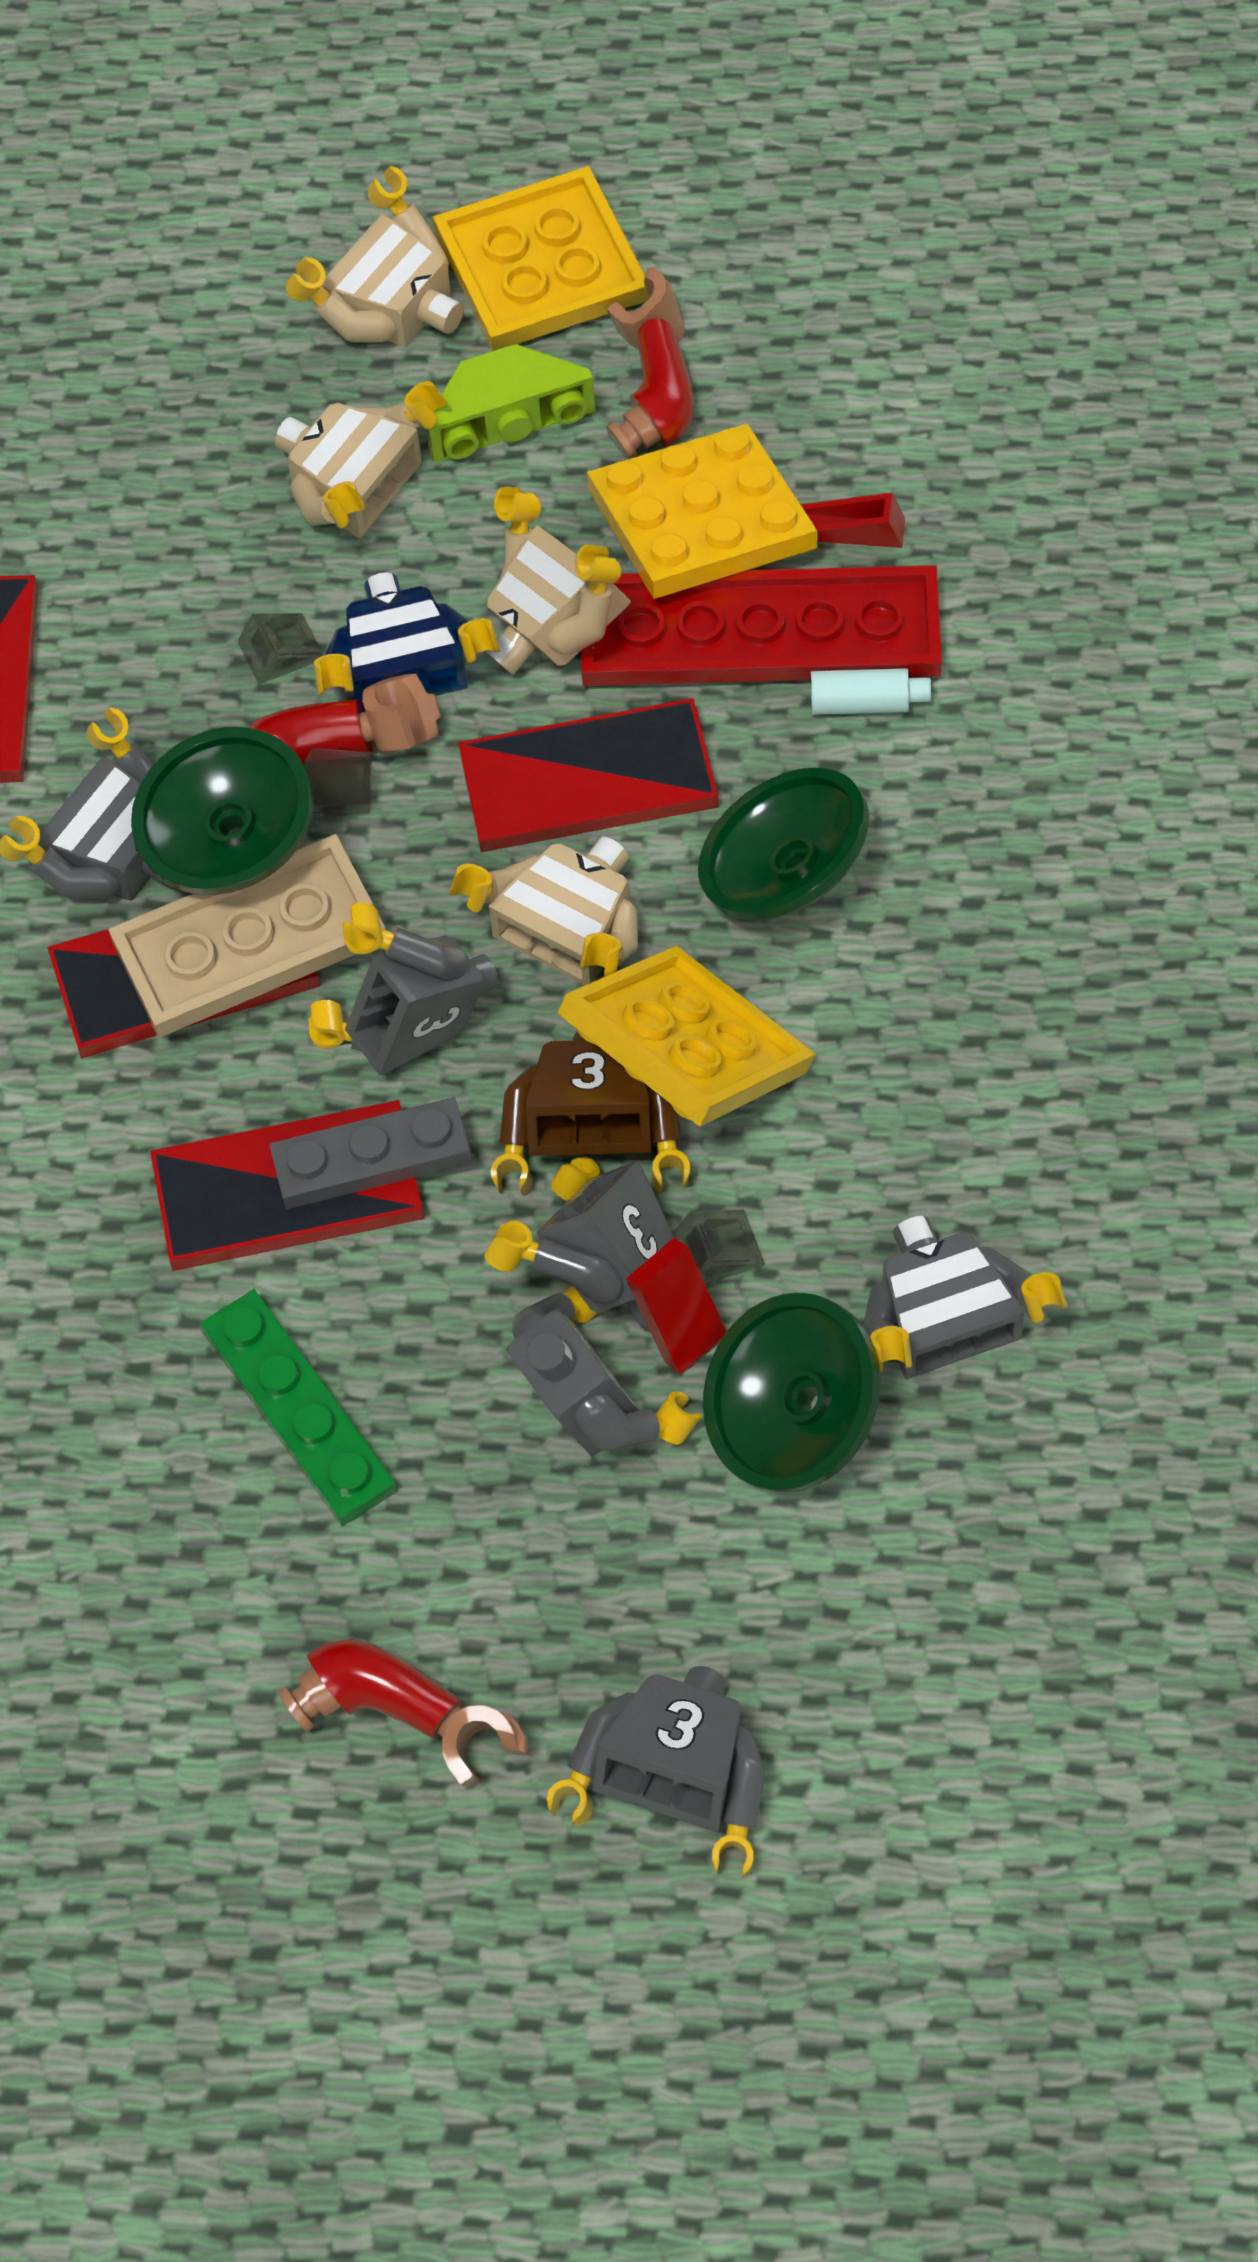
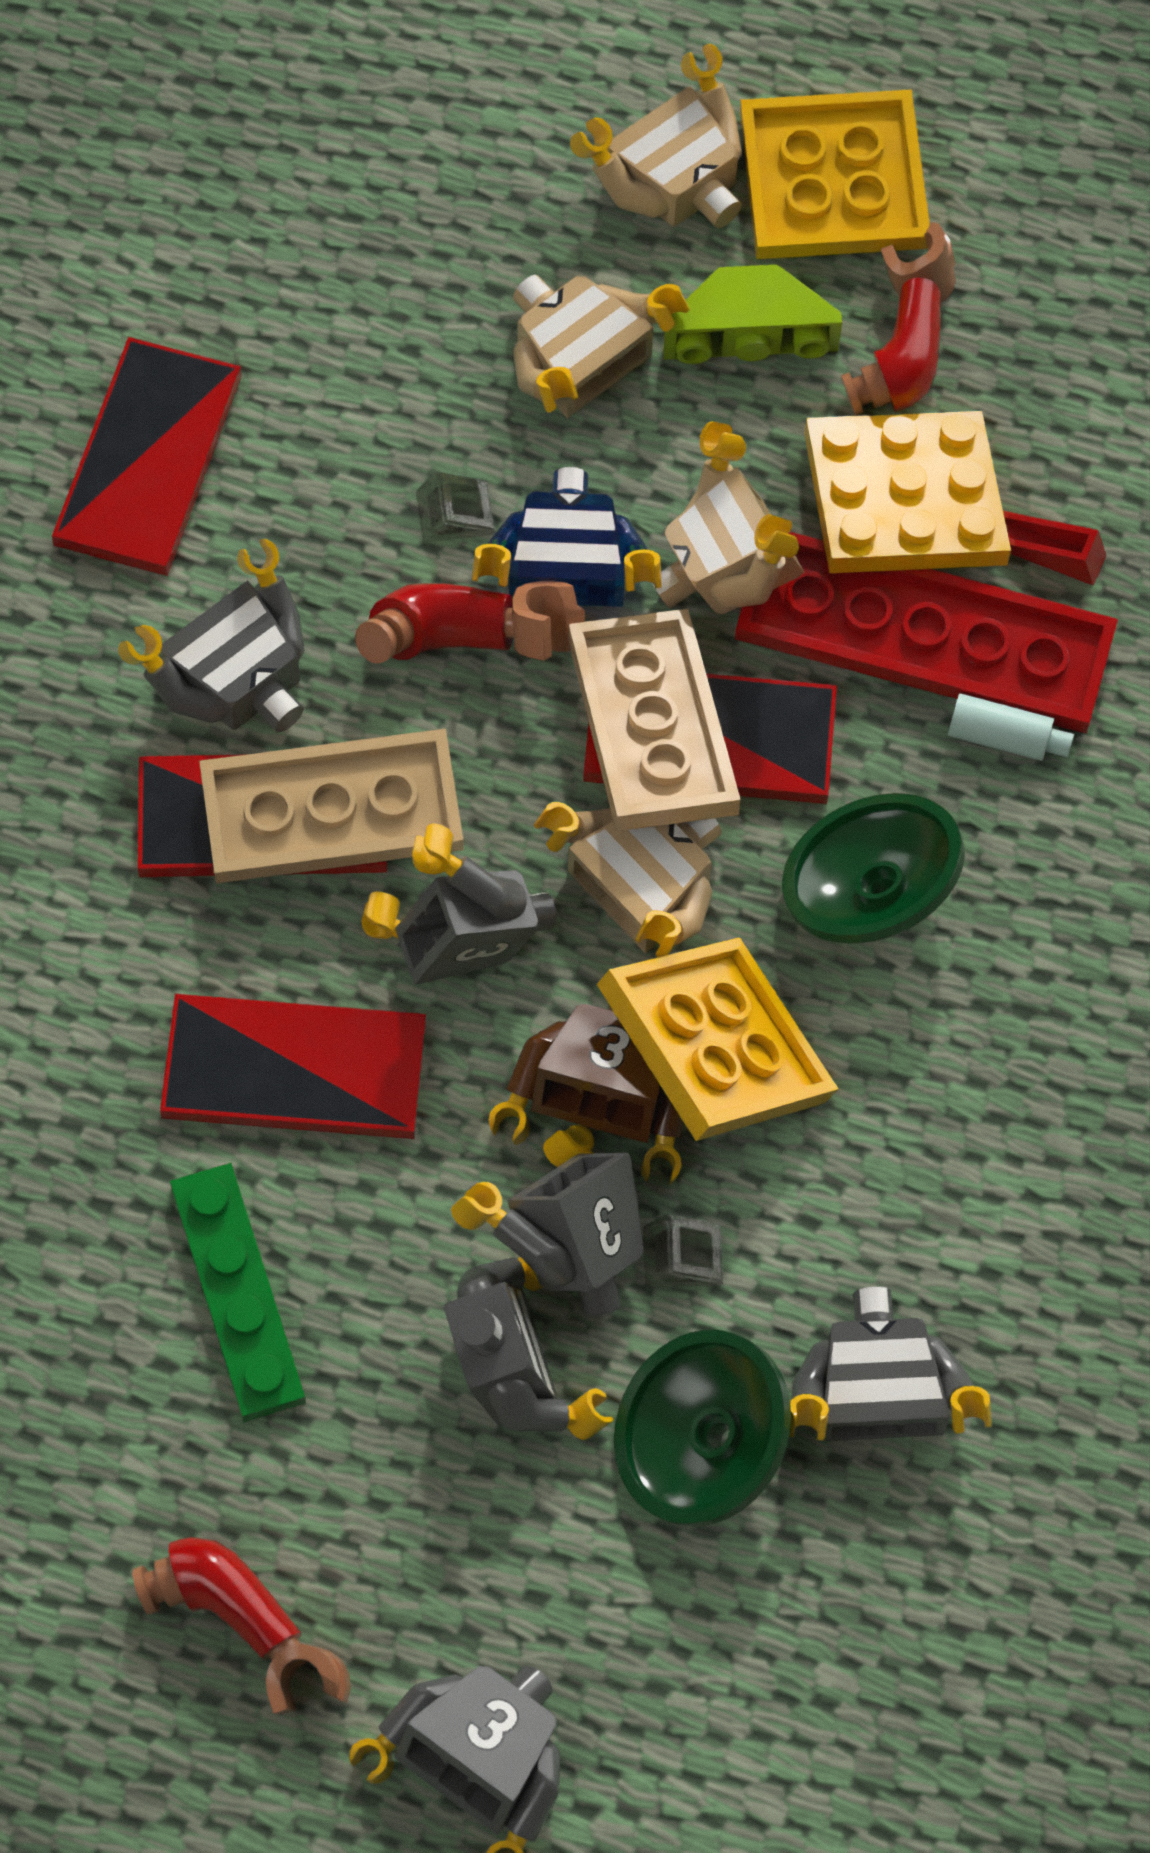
camera: 10 degrees right, 5 degrees up
(207, 790) = (333, 648): dark green dish -> none
(339, 782) = (464, 672): clear smoke slope -> none
(370, 1153) = (381, 1061): dark grey plate -> none
(532, 770) = (653, 720): none -> tan plate
(676, 1305) = (621, 1308): red tile -> none

